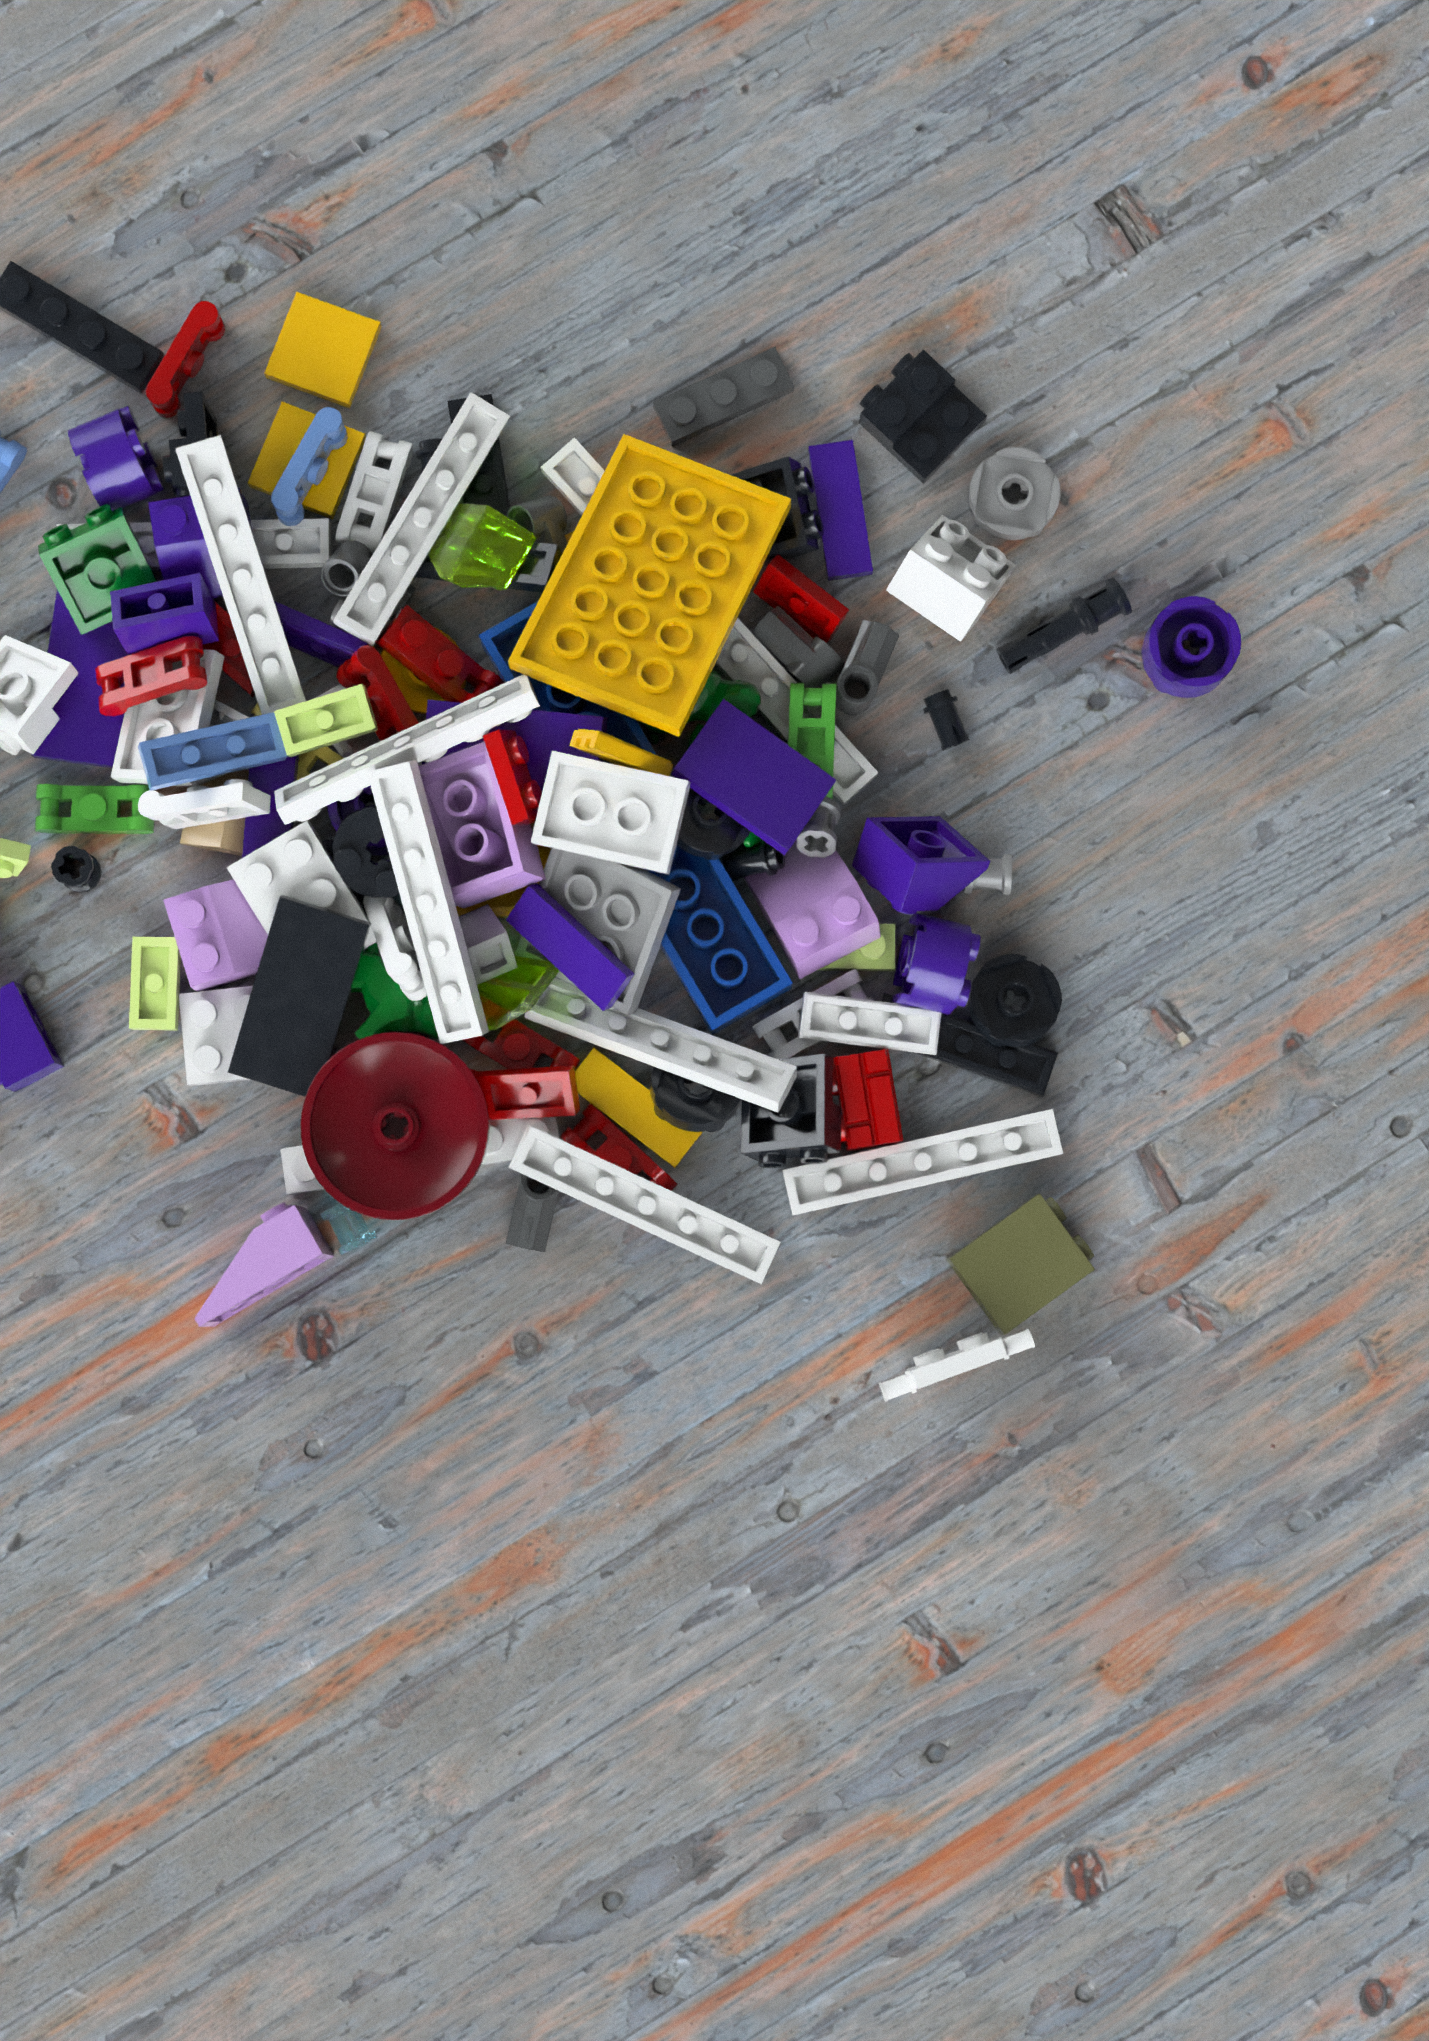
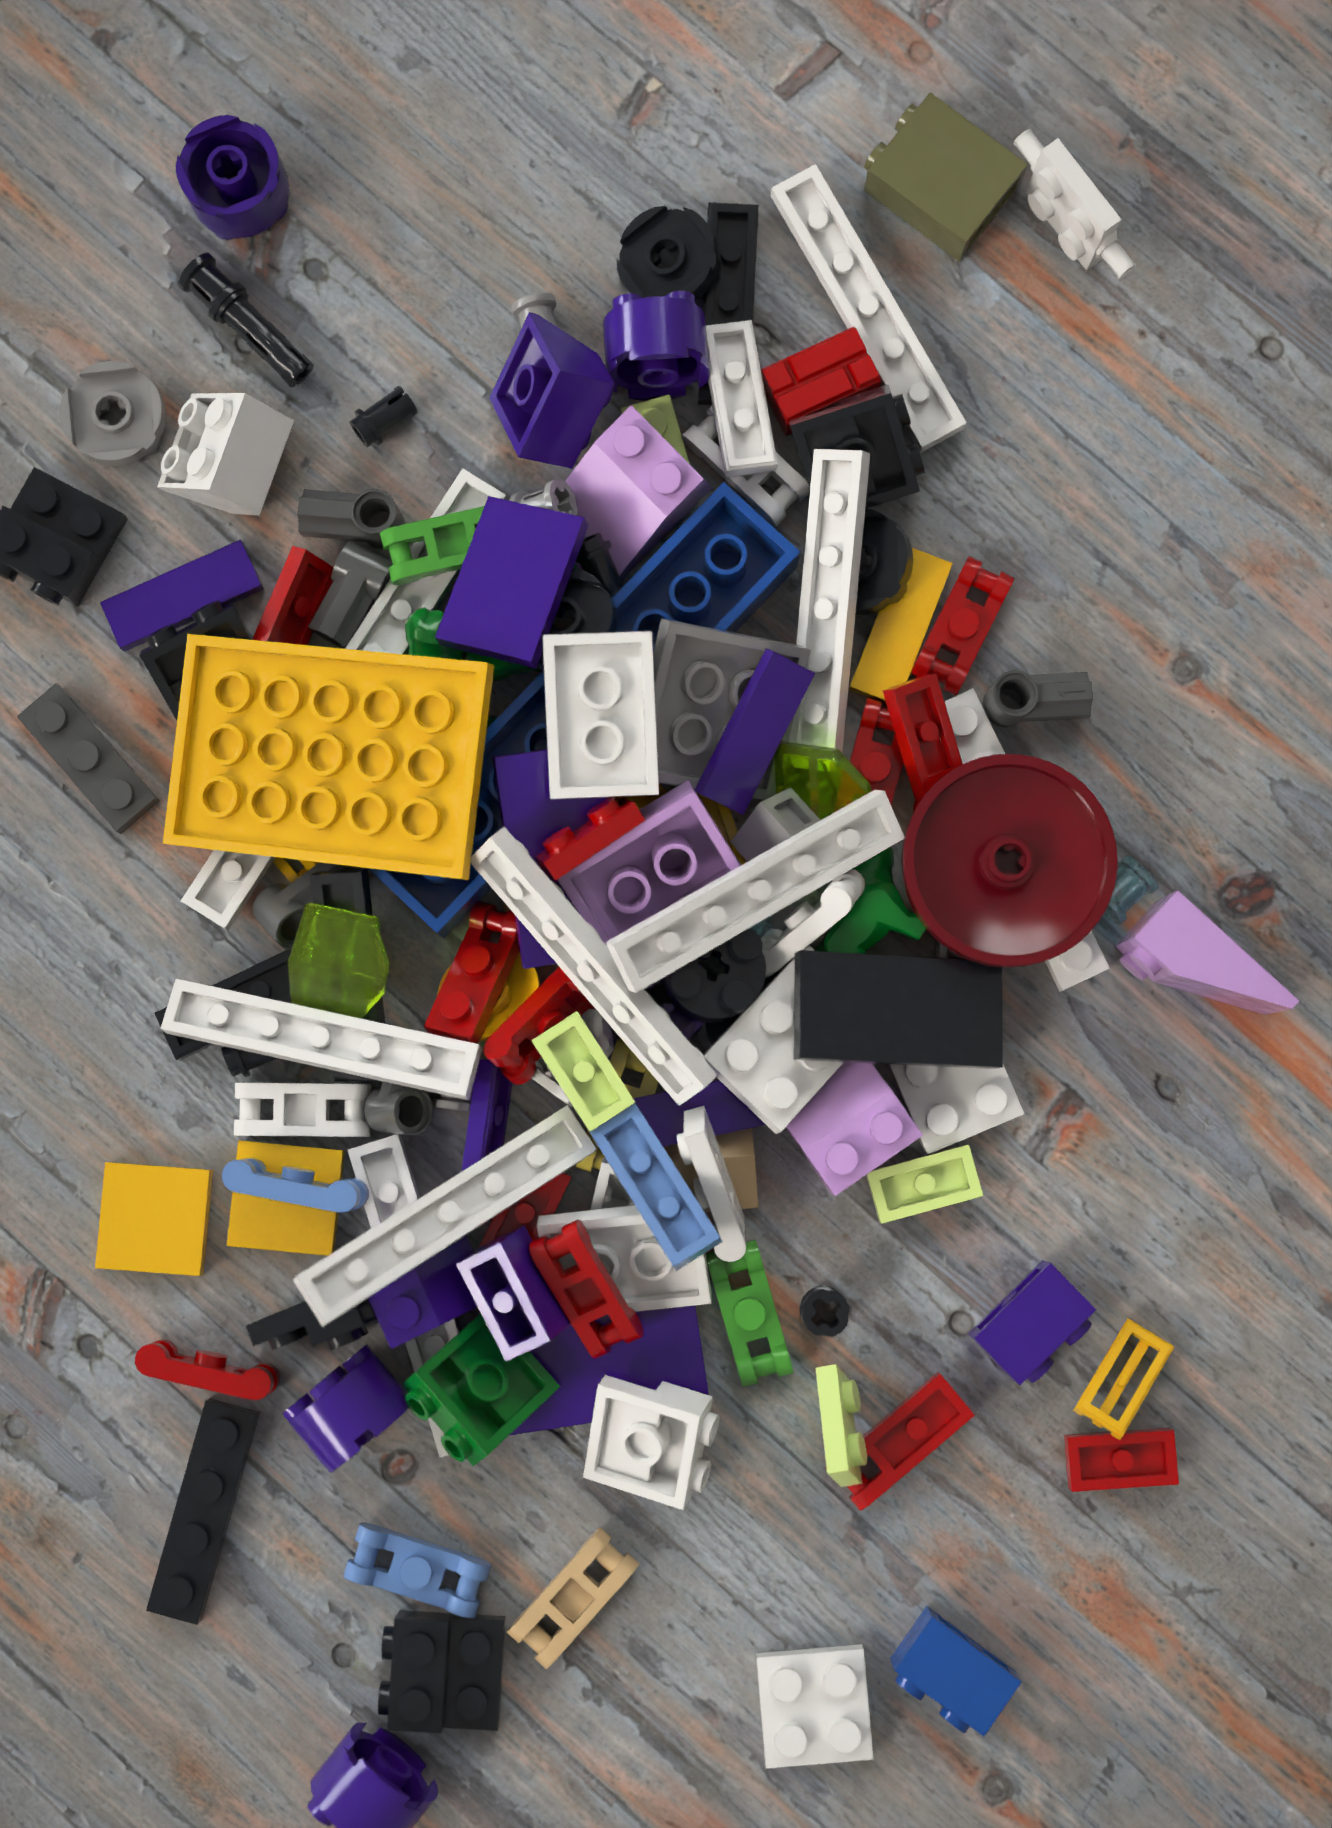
camera: 100 degrees left, 0 degrees up
(619, 752) = (531, 723): yellow tile -> none
(644, 1204) = (1007, 577): white plate -> none

